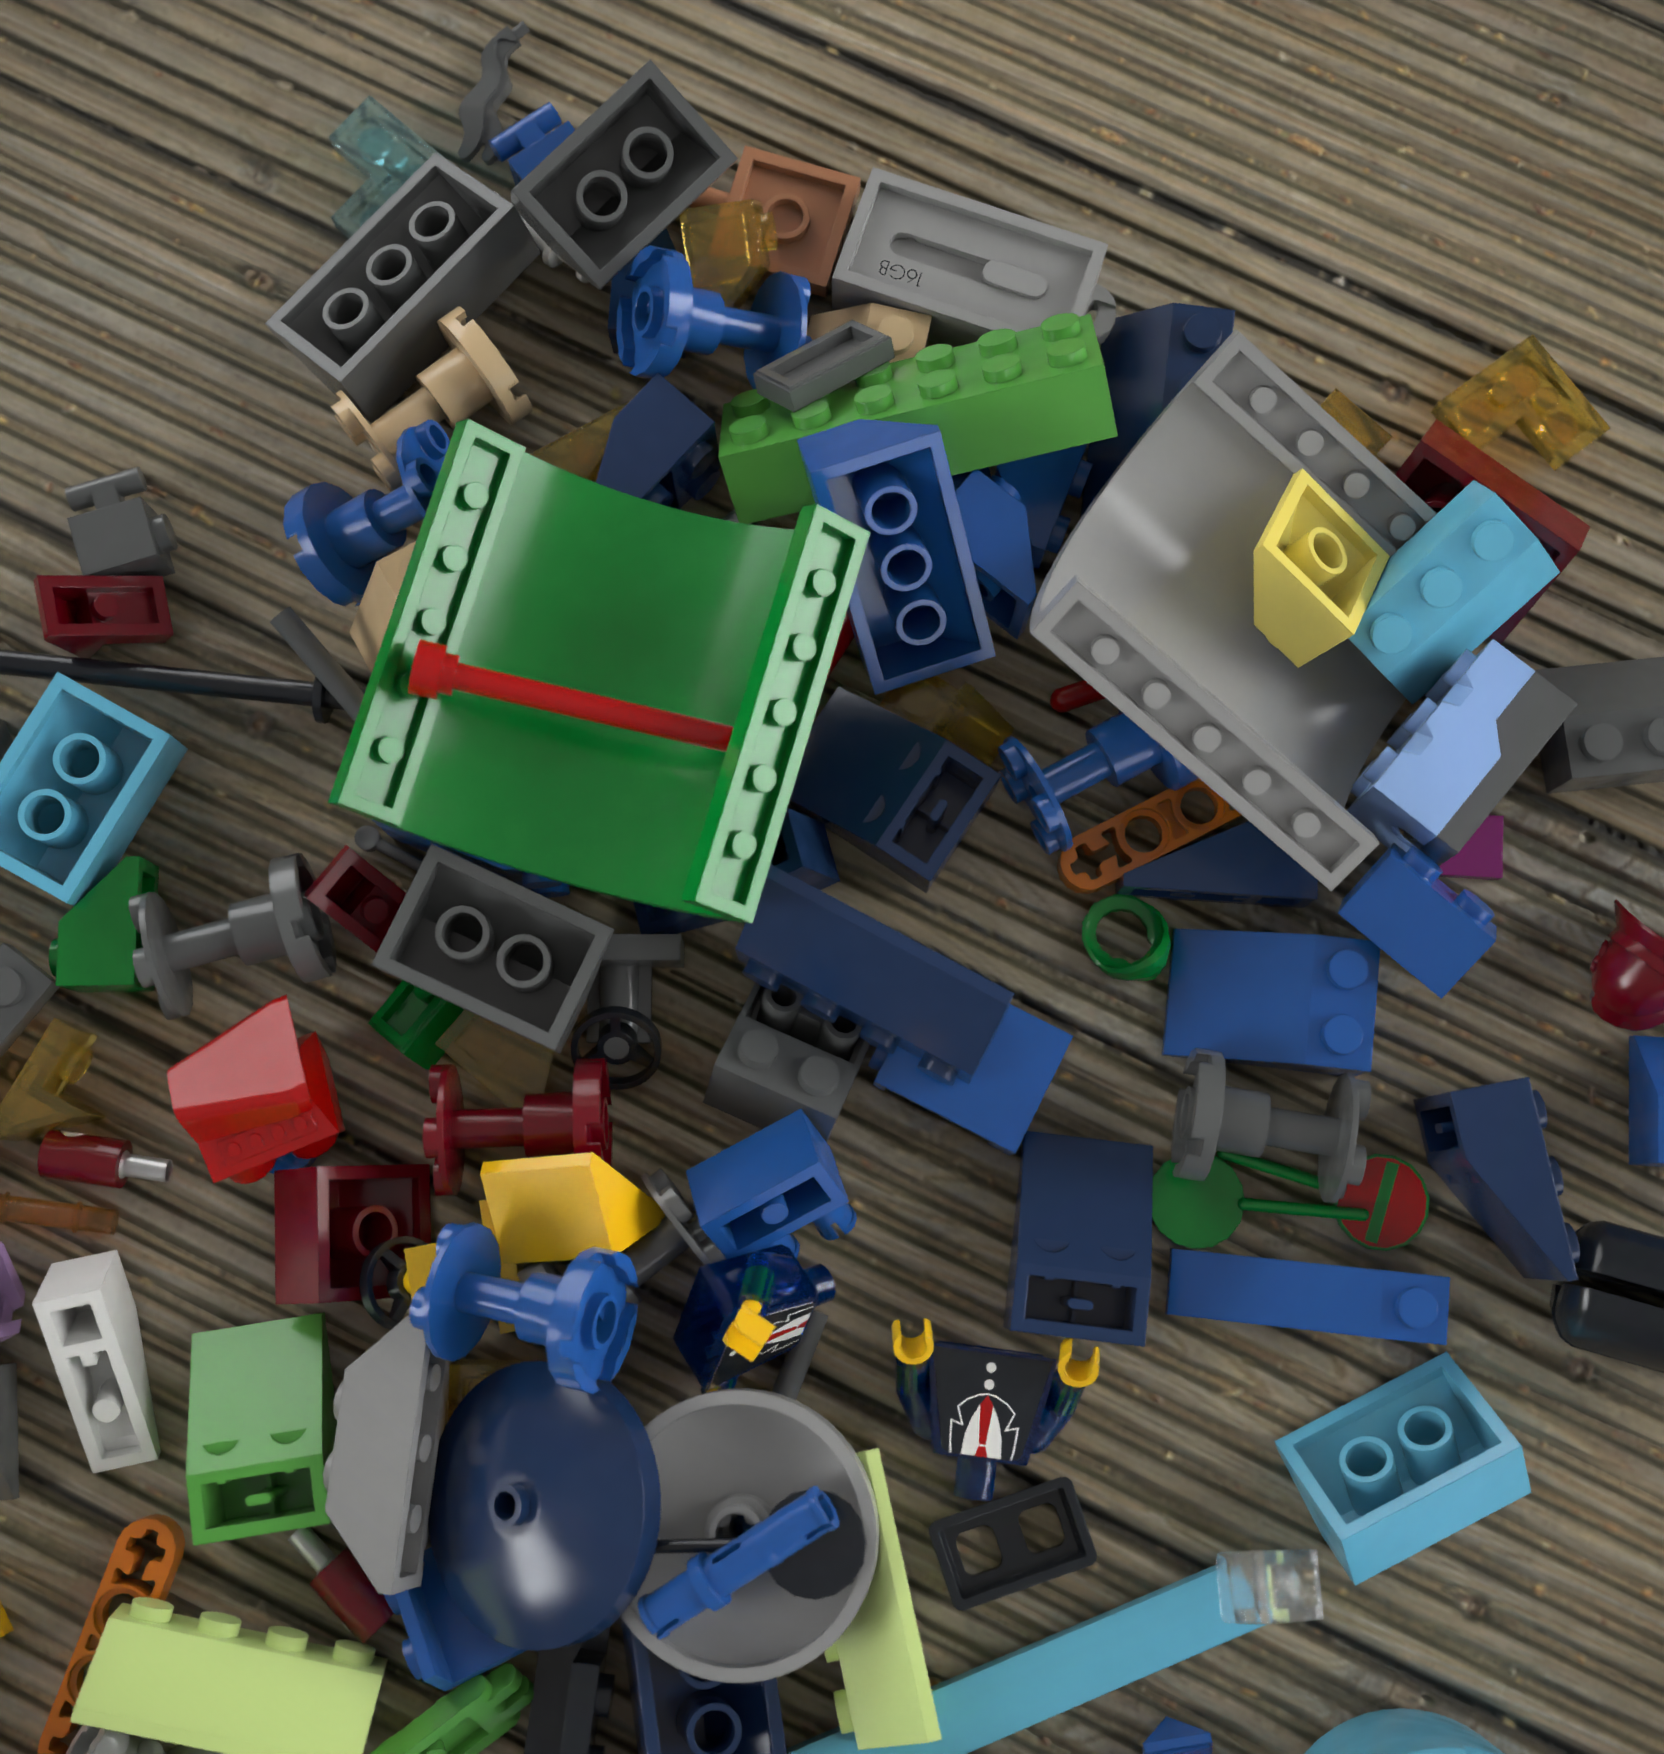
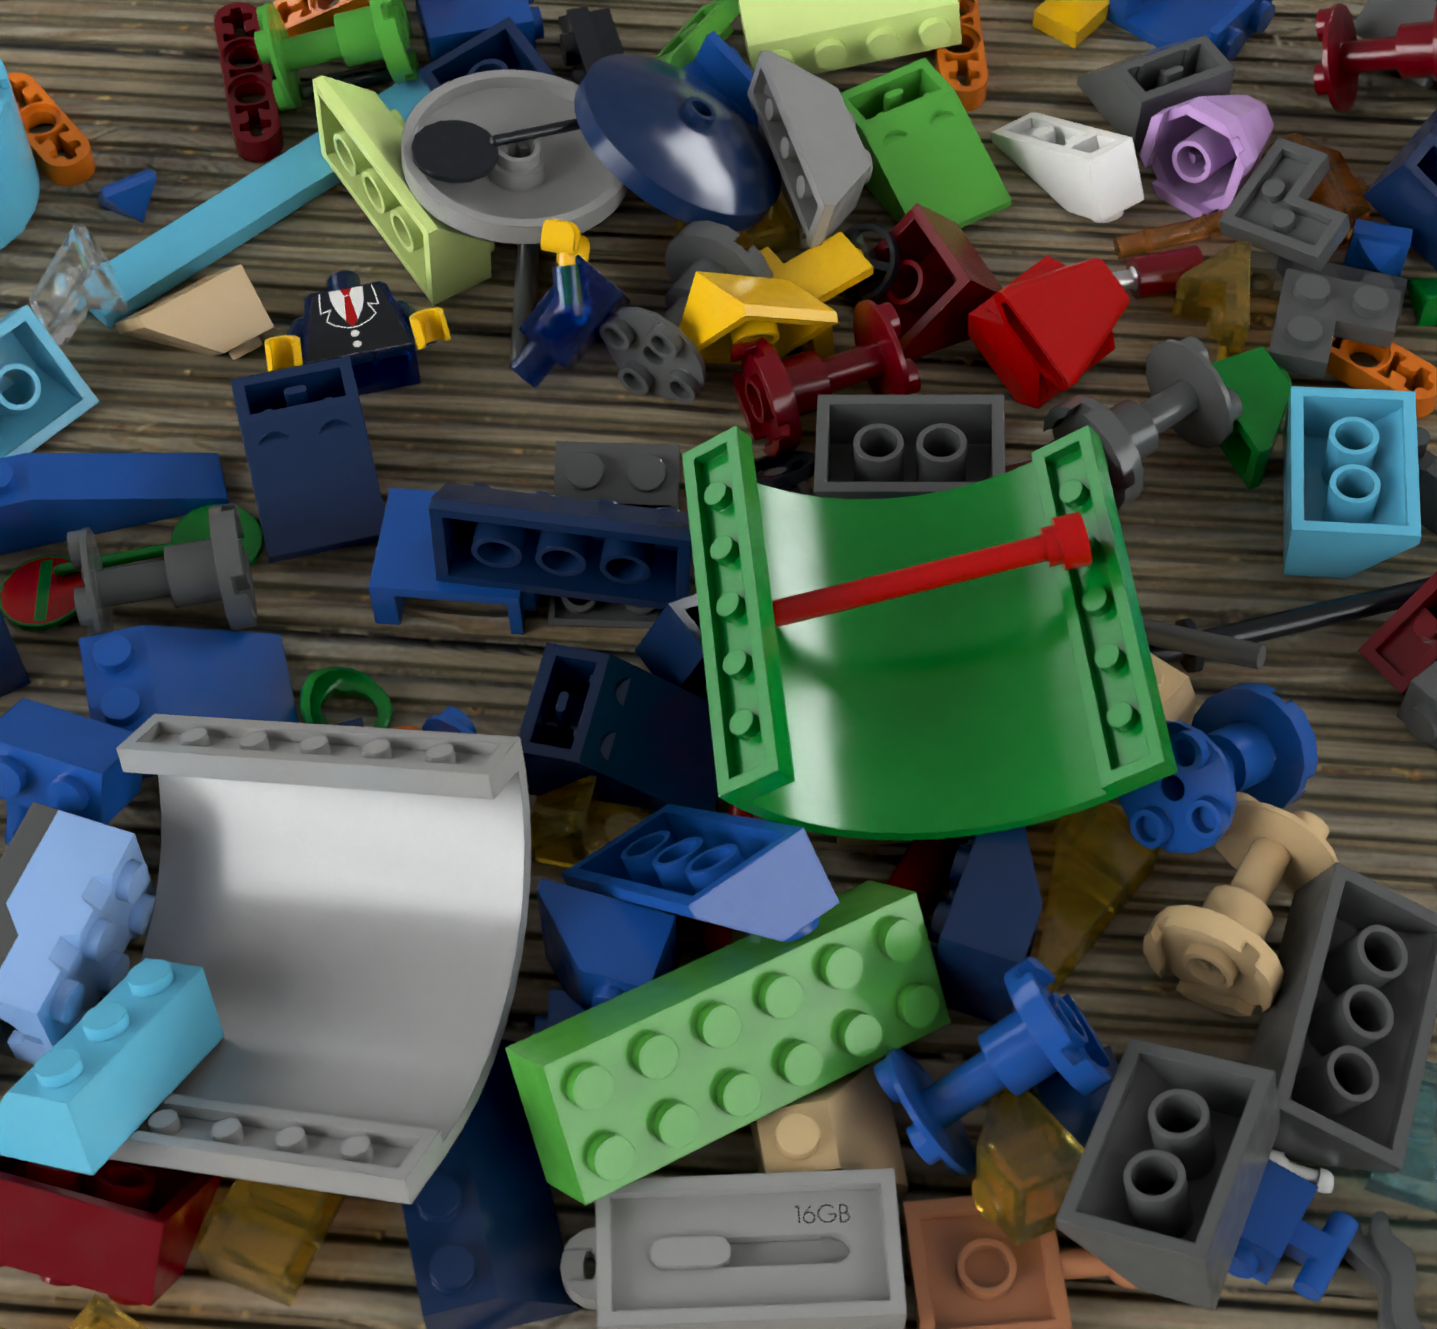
camera: 160 degrees right, 25 degrees down
(575, 1316) = (713, 213): blue piece -> none
(715, 1576) = (522, 105): blue pin -> none
(770, 1188) = (592, 387): blue brick -> none
(823, 365) = (854, 1045): dark grey tile -> none
(1018, 1565) = (291, 257): black piece -> none
(1150, 1506) = (205, 317): none -> tan slope
(1312, 572) = (245, 1025): light yellow slope -> none

